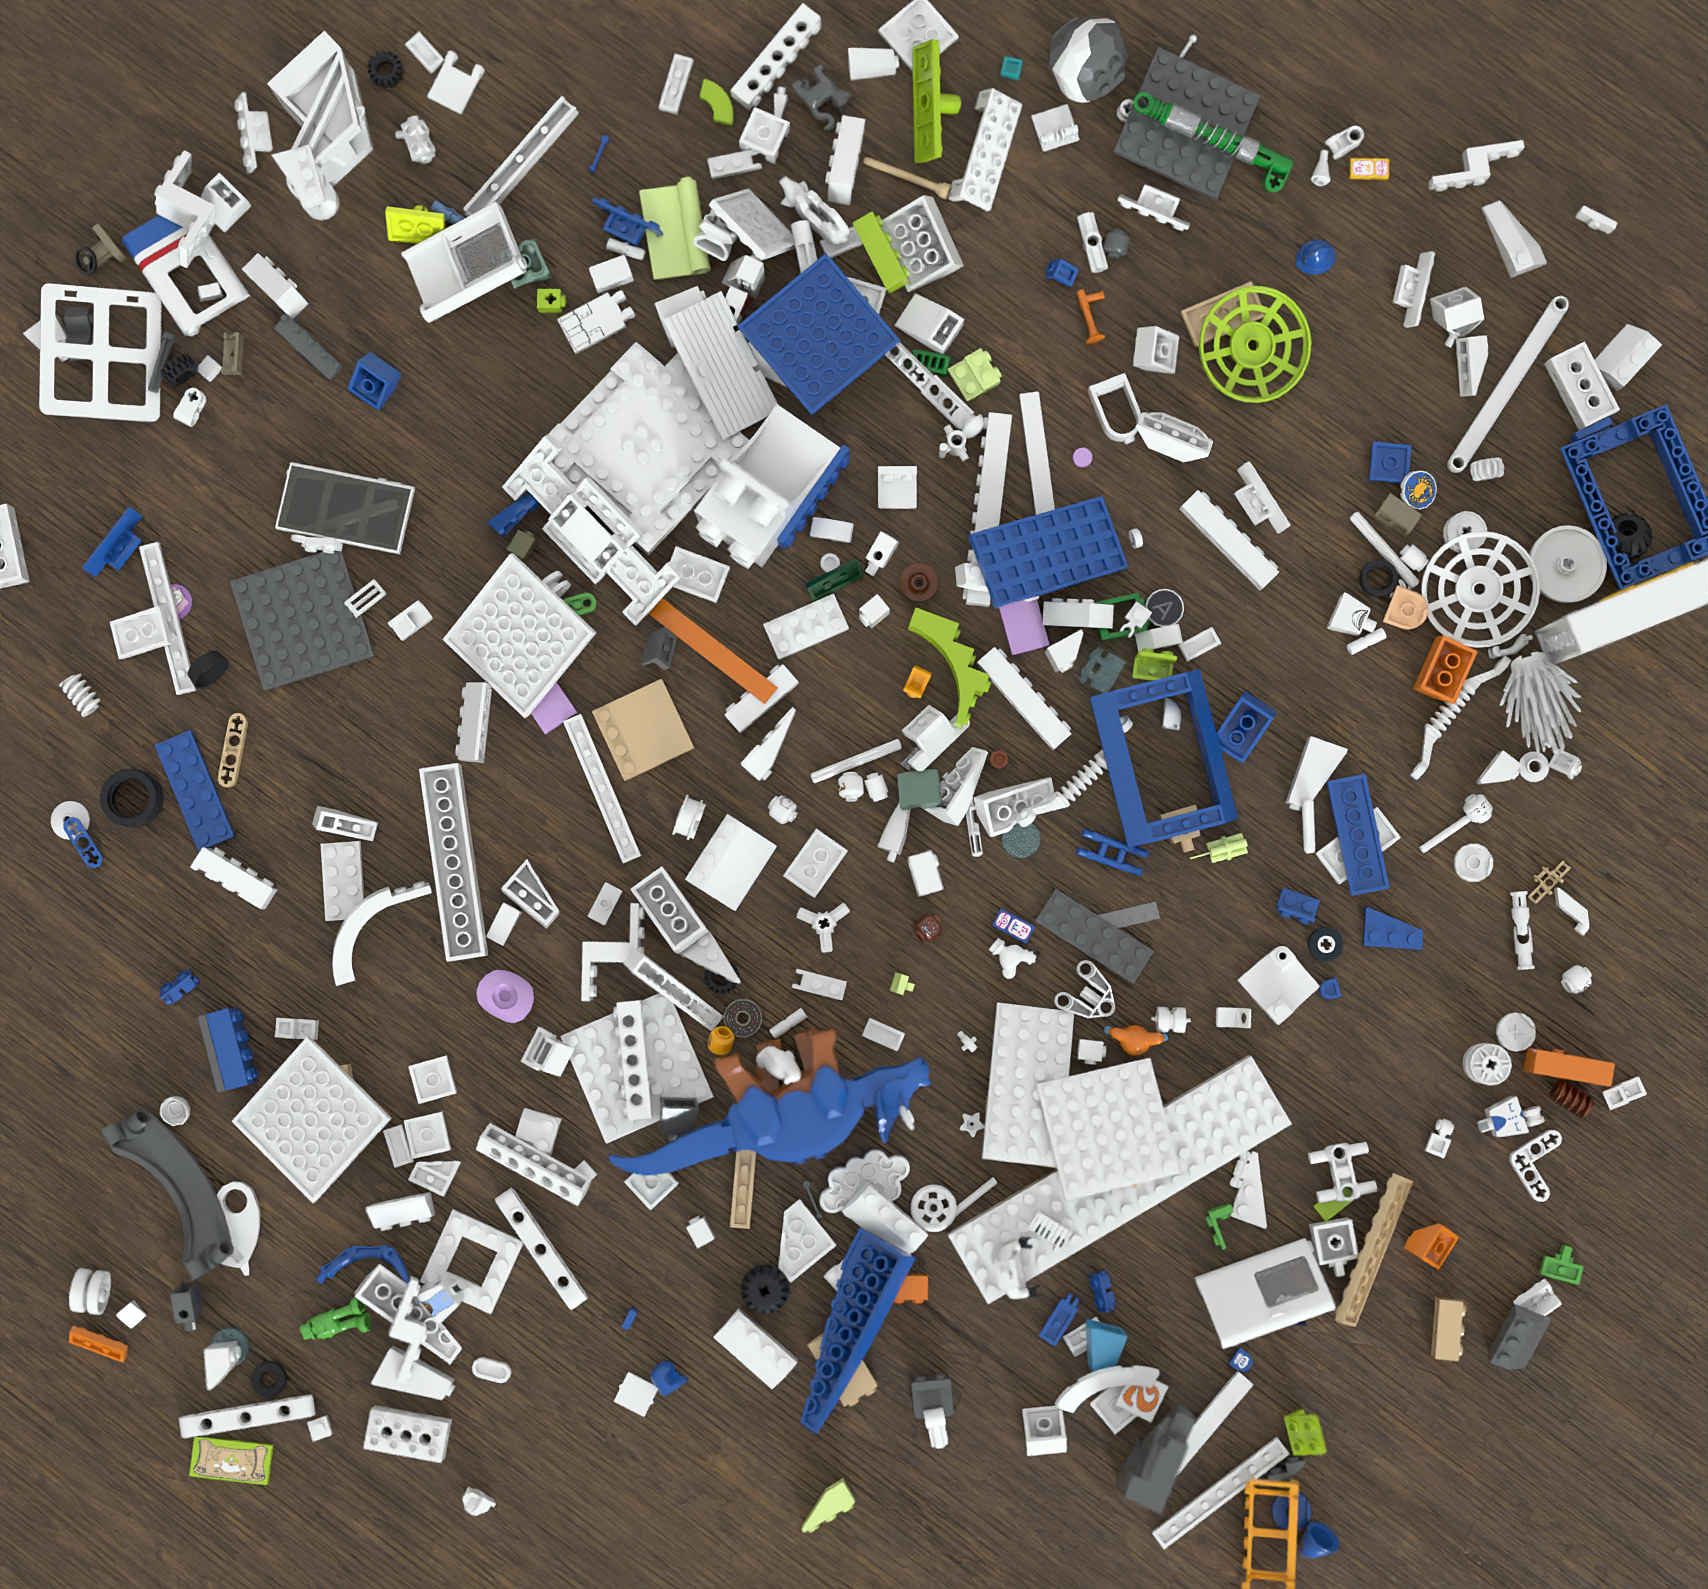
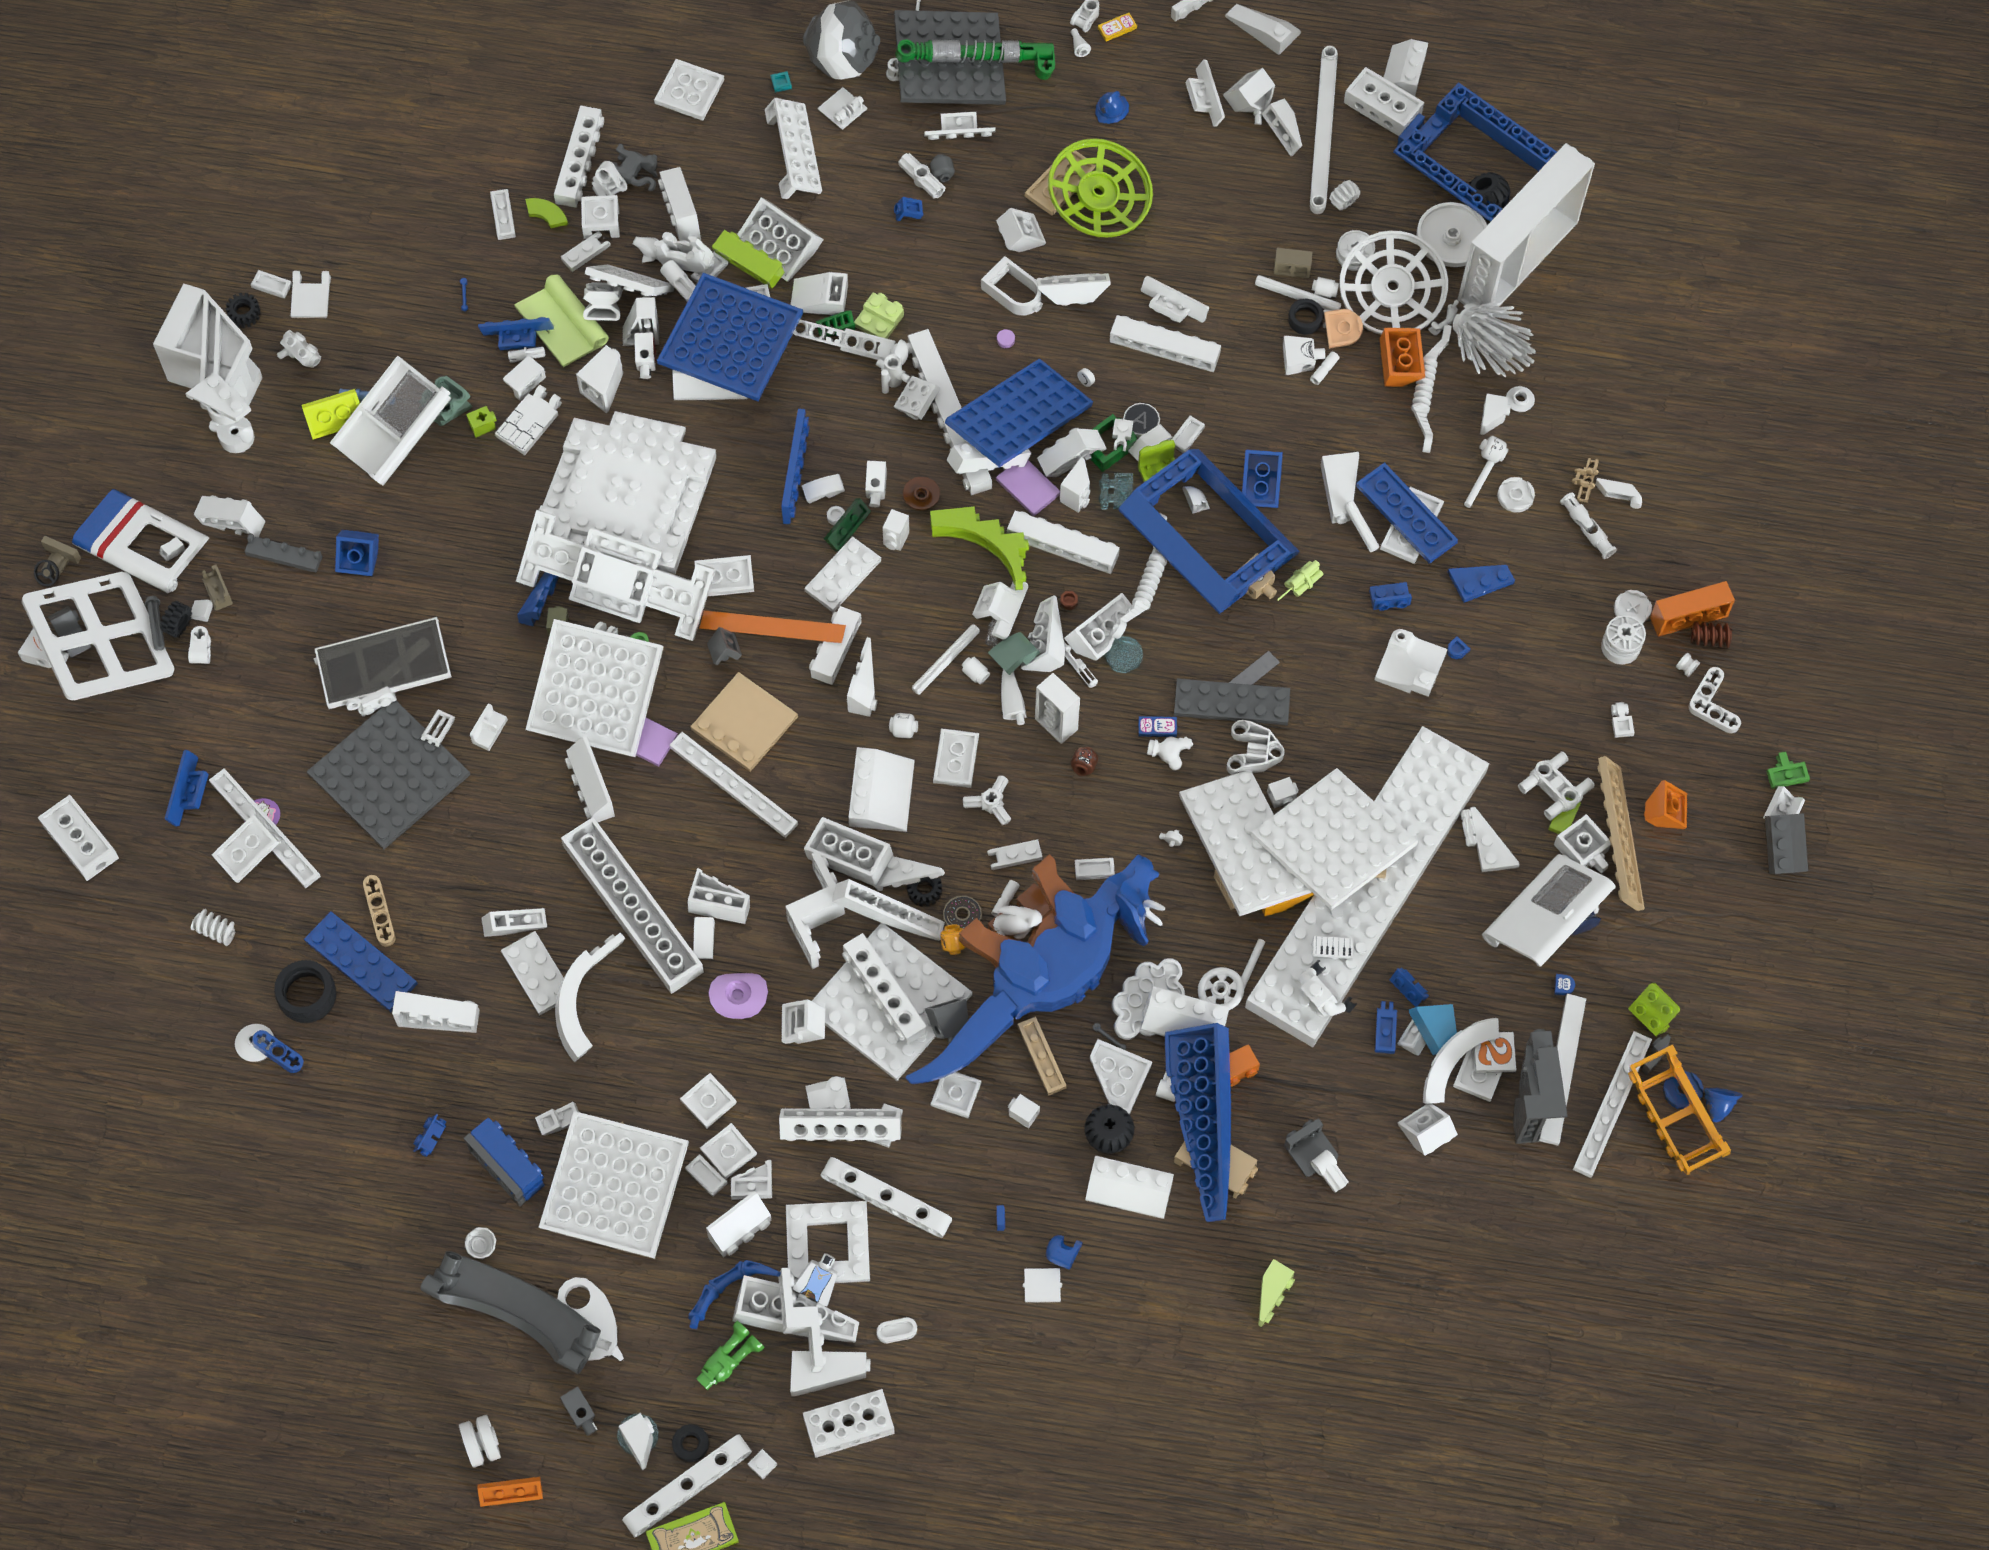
camera: 30 degrees left, 20 degrees down
(131, 1314) = (528, 1450): white slope -> none
(184, 208) = (119, 486): white bracket -> none
(212, 674) = (331, 848): black tyre -> none
(227, 200) = (150, 471): white slope -> none
(254, 132) = (149, 408): white bracket -> none
(476, 1501) = (946, 1453): white piece -> none
(523, 157) = (401, 319): white tile -> none
(605, 903) = (786, 878): white plate -> none
(689, 817) = (823, 767): white wheel -> none
(720, 365) = (659, 398): white door -> none
(763, 487) = (747, 476): white arch -> none
(792, 98) = (611, 182): none -> white piece
(850, 786) = (952, 679): white head -> none
(871, 62) = (661, 125): white slope -> none
(897, 487) = (860, 428): white bracket -> none
(900, 984) = (1087, 817): yellowish green tile -> none
(917, 682) = (964, 570): light orange bracket -> none
(929, 101) = (726, 129): lime plate -> none
(941, 189) = (772, 193): tan piece -> none
(964, 482) = (916, 397): none -> white plate
(972, 1129) = (1219, 905): white plate -> none
(1036, 452) = (962, 348): white tile -> none
(1094, 335) = (964, 243): orange piece -> none
(1101, 858) = (1216, 620): blue piece -> none
(1135, 1039) = (1316, 762): orange piece -> none
(1172, 1019) = (1333, 735): white wheel -> none
(1220, 1212) = (1469, 879): bright green bracket -> none
(1232, 1017) = (1388, 709): white bracket -> none
(1331, 936) = (1430, 623): black bush -> none
(1389, 462) = (1263, 228): blue plate -> none
(1418, 489) = (1298, 235): tile -> none
(1447, 1329) = (1723, 869): tan brick -> none
(1504, 1118) = (1666, 678): white torso -> none
(1566, 763) = (1544, 382): white bracket -> none
(1576, 979) = (1656, 541): white head -> none
(1624, 1092) = (1751, 611): white slope -> none

